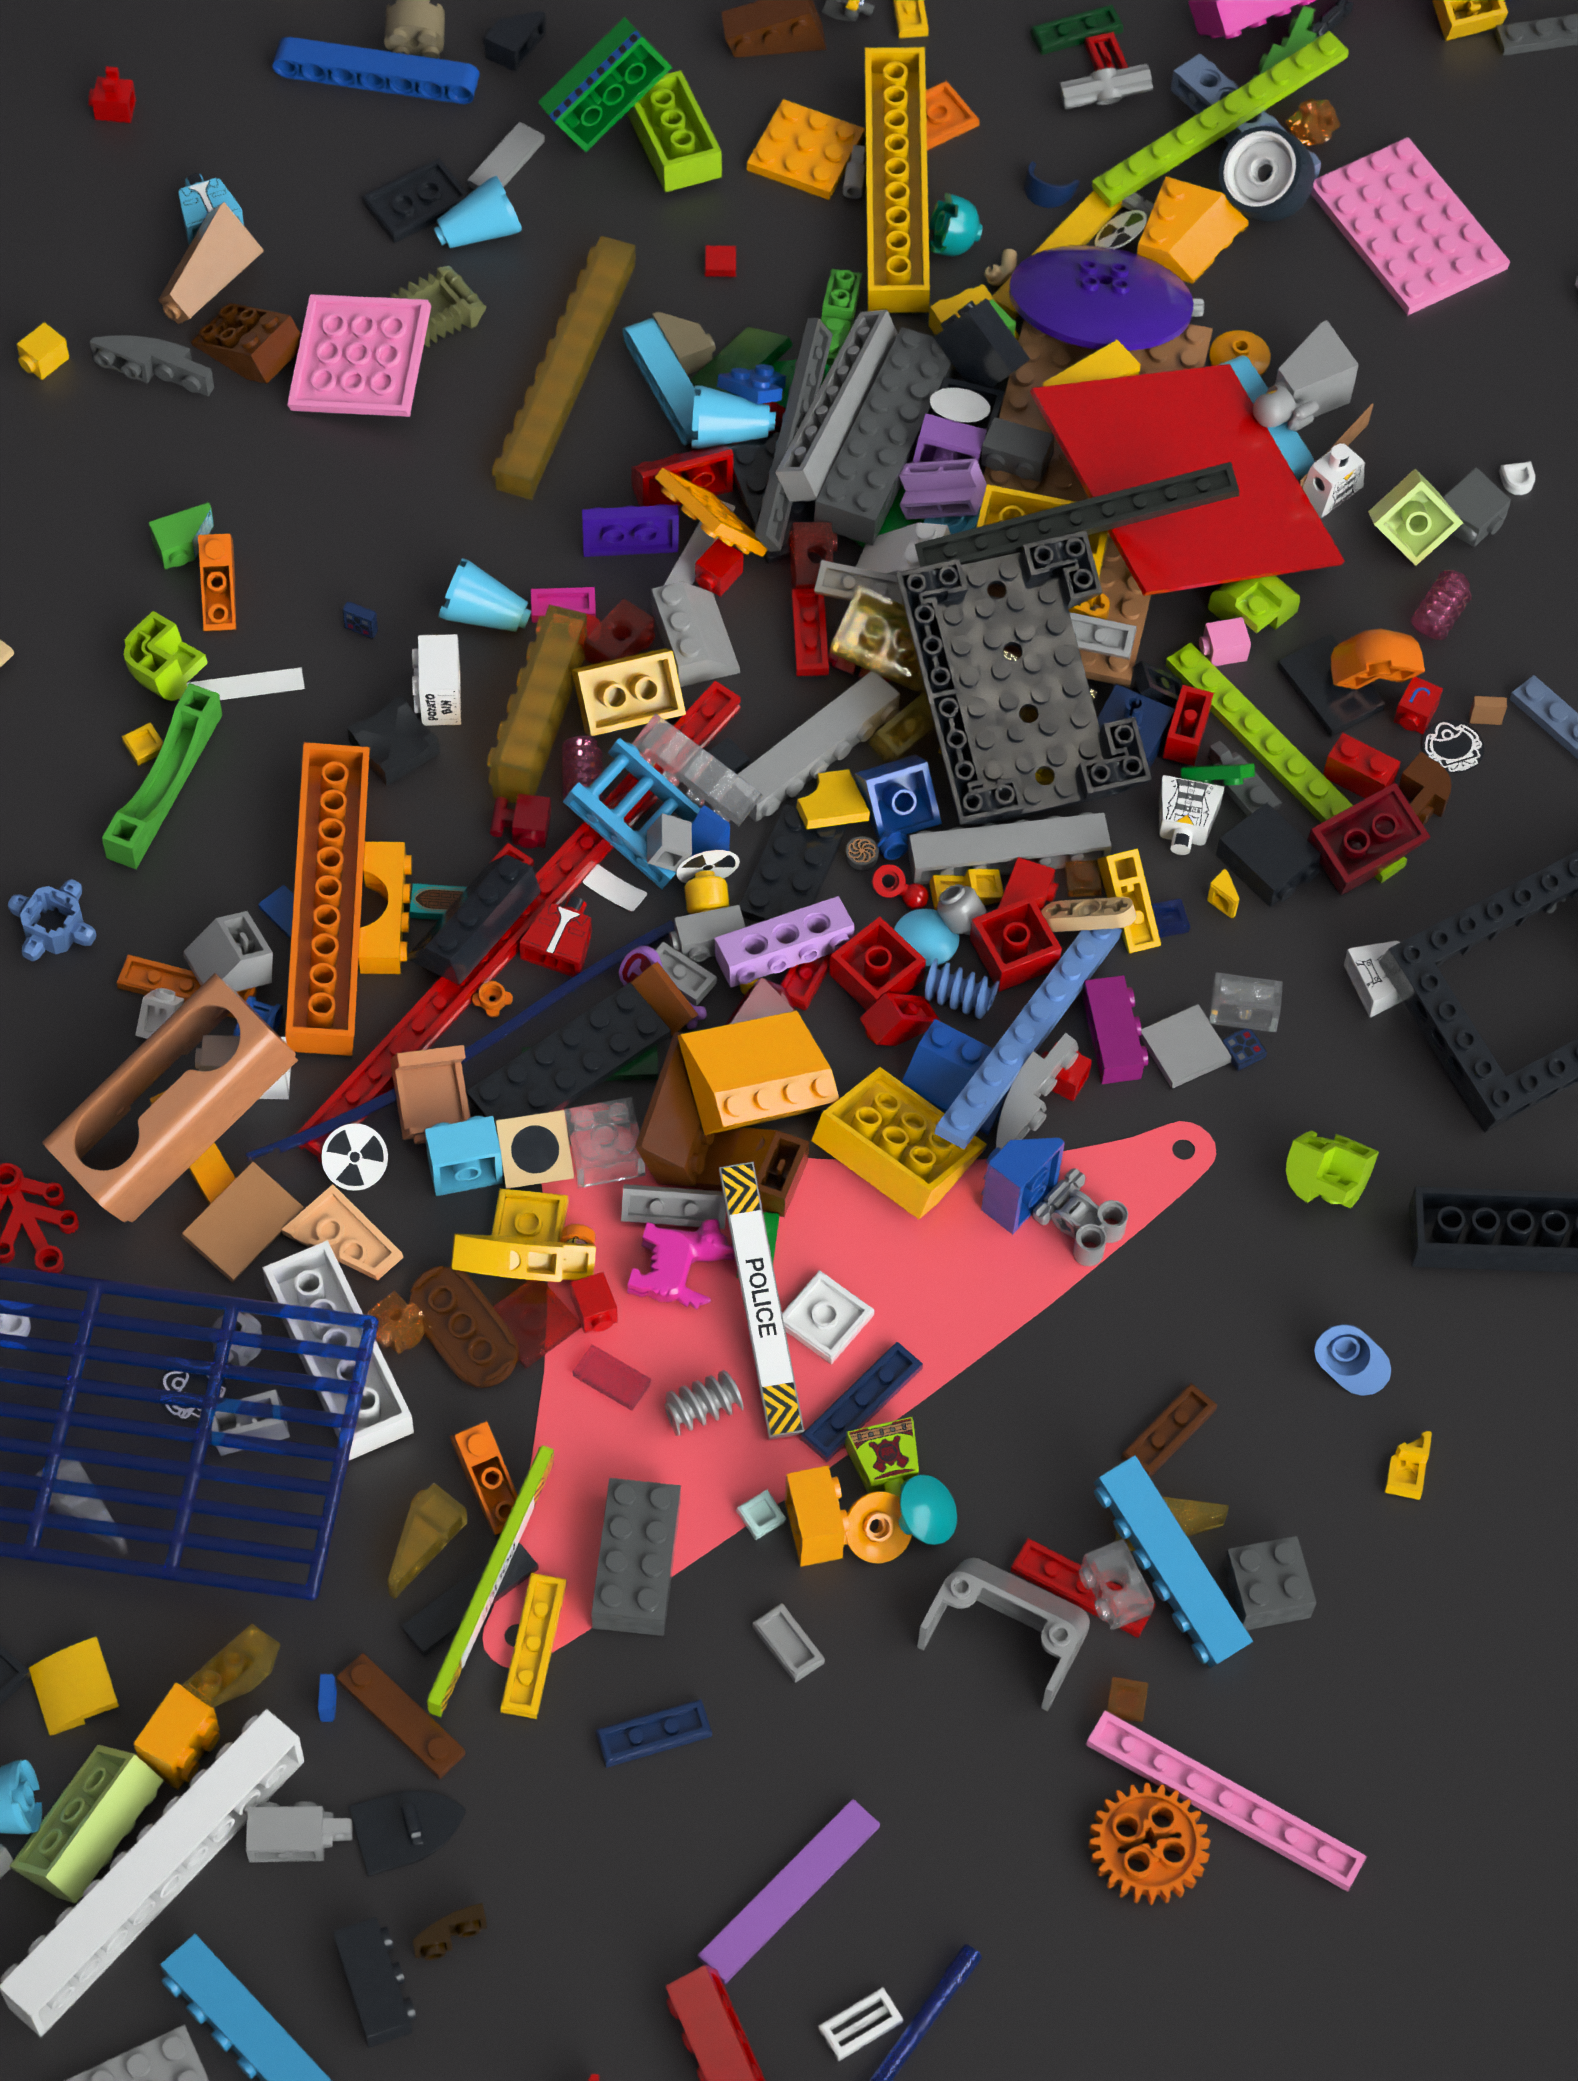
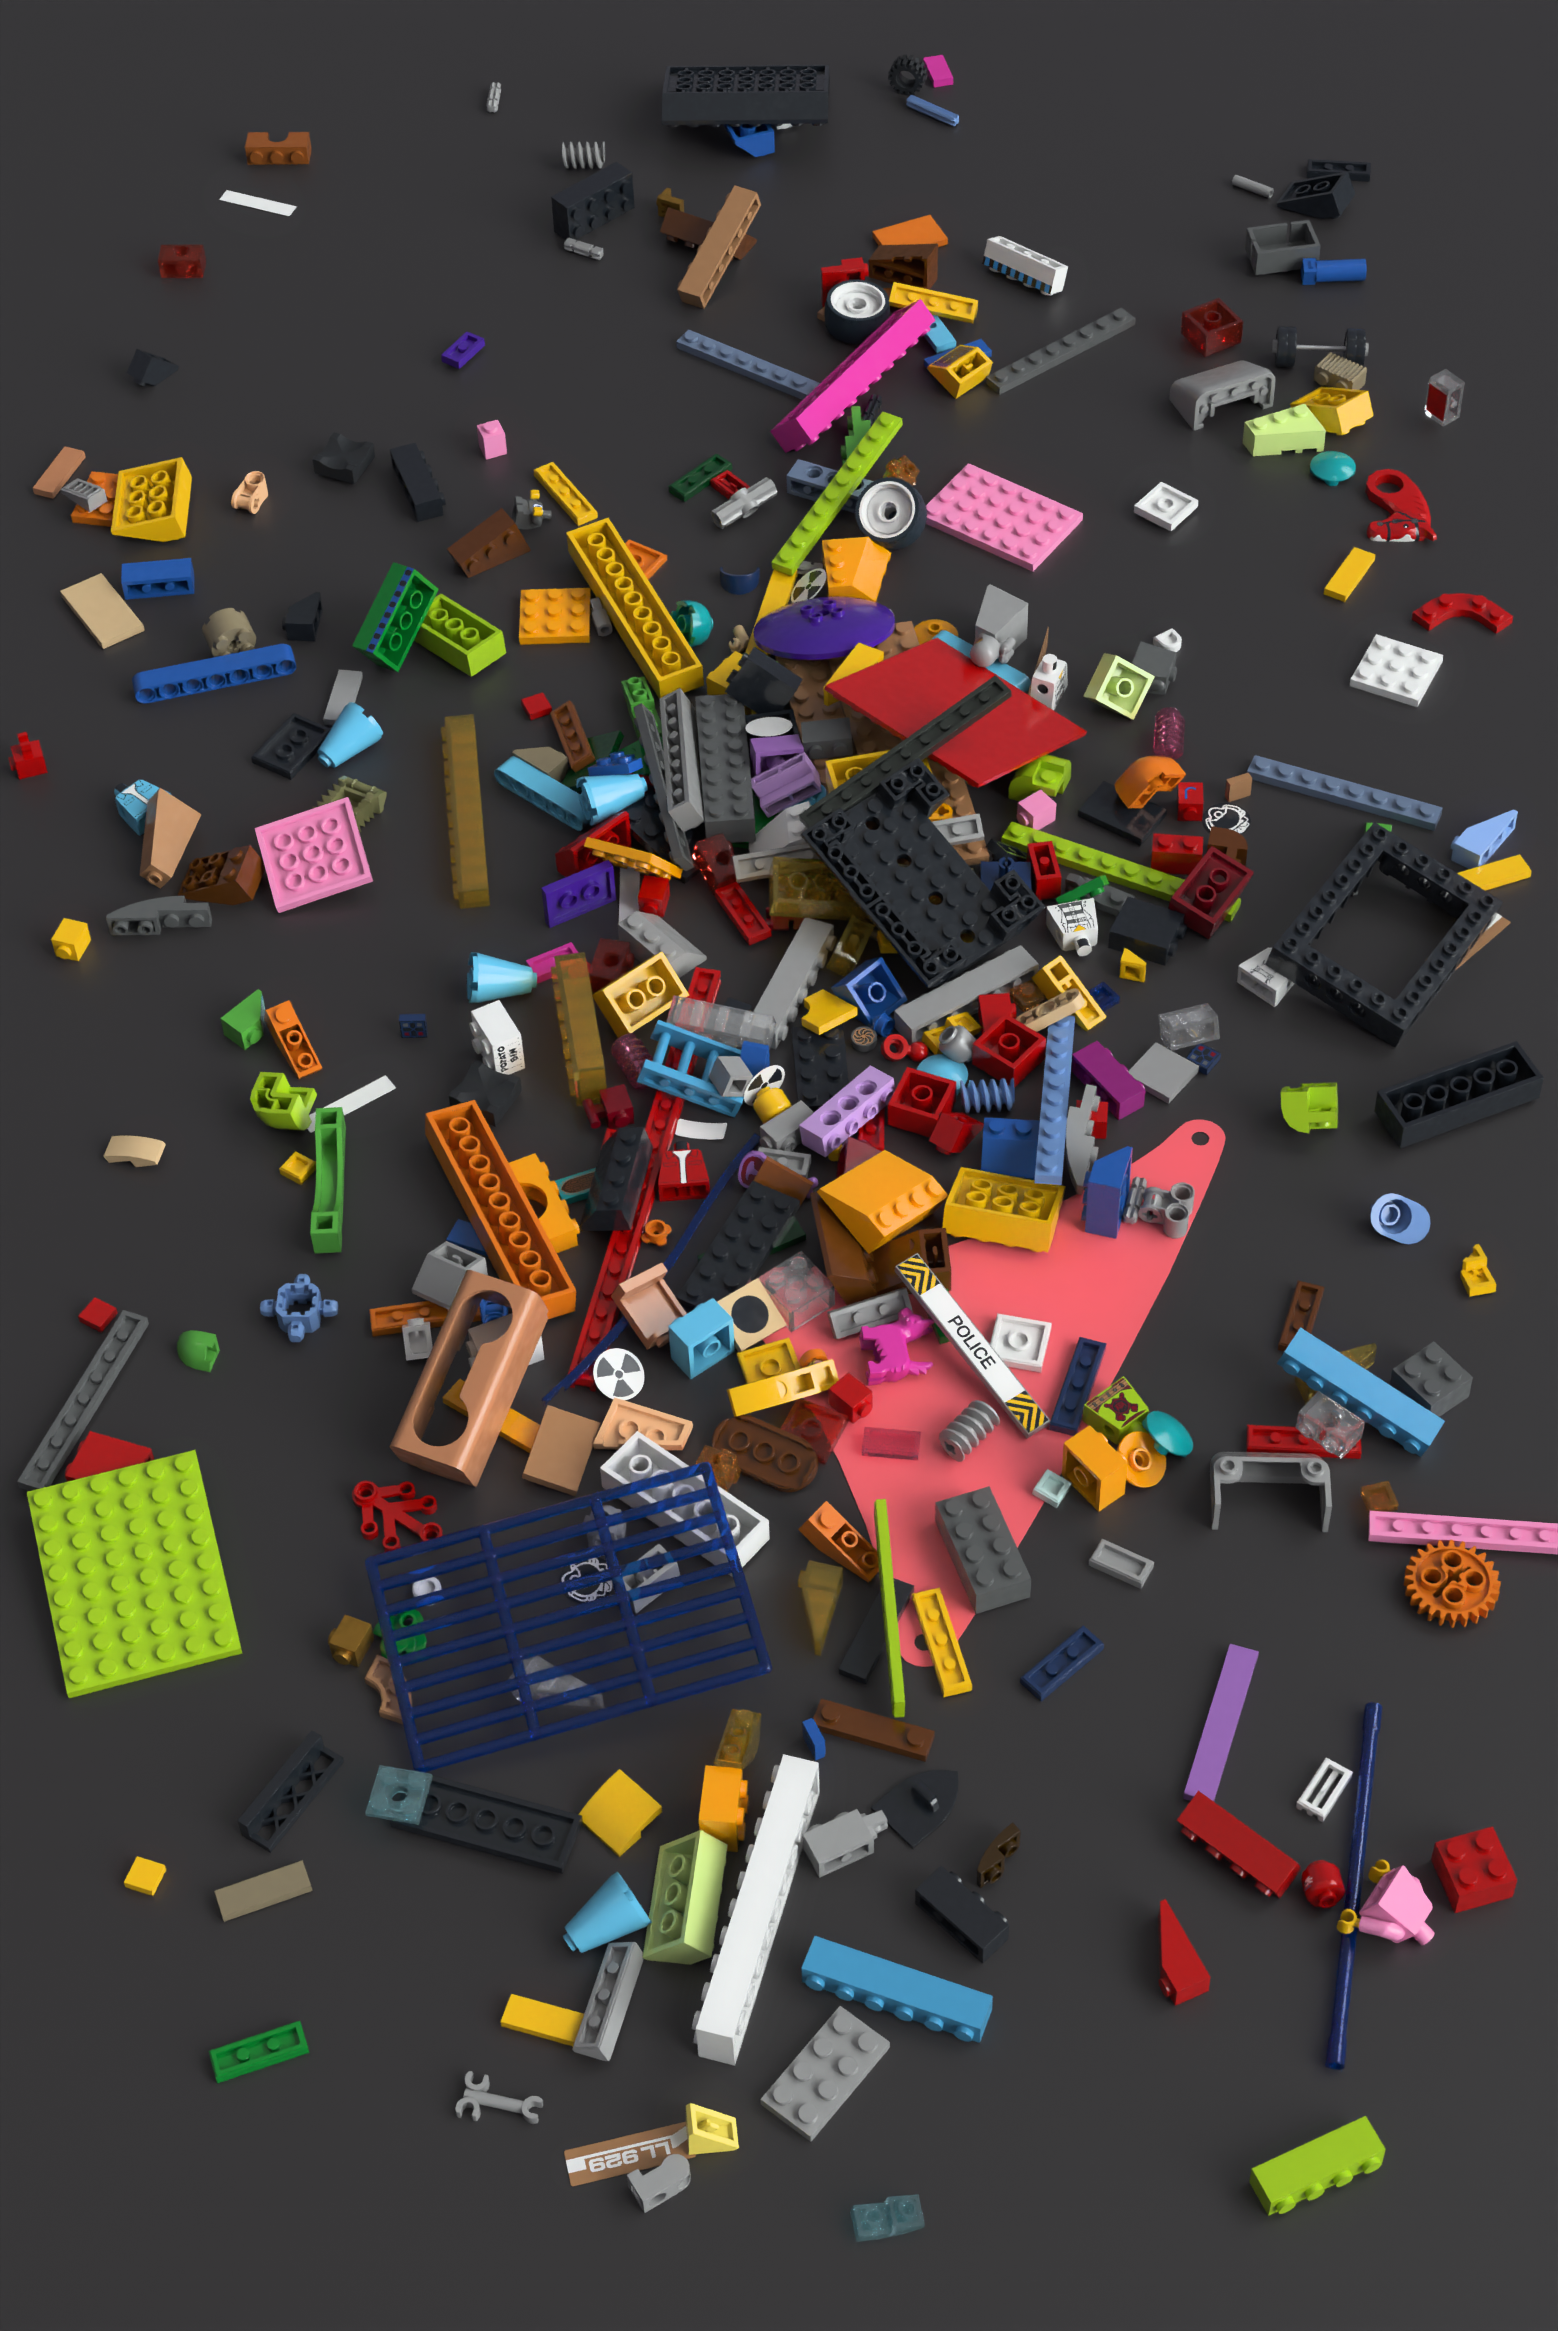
camera: 20 degrees left, 10 degrees down
(736, 319) = (572, 736): none -> dark orange tile

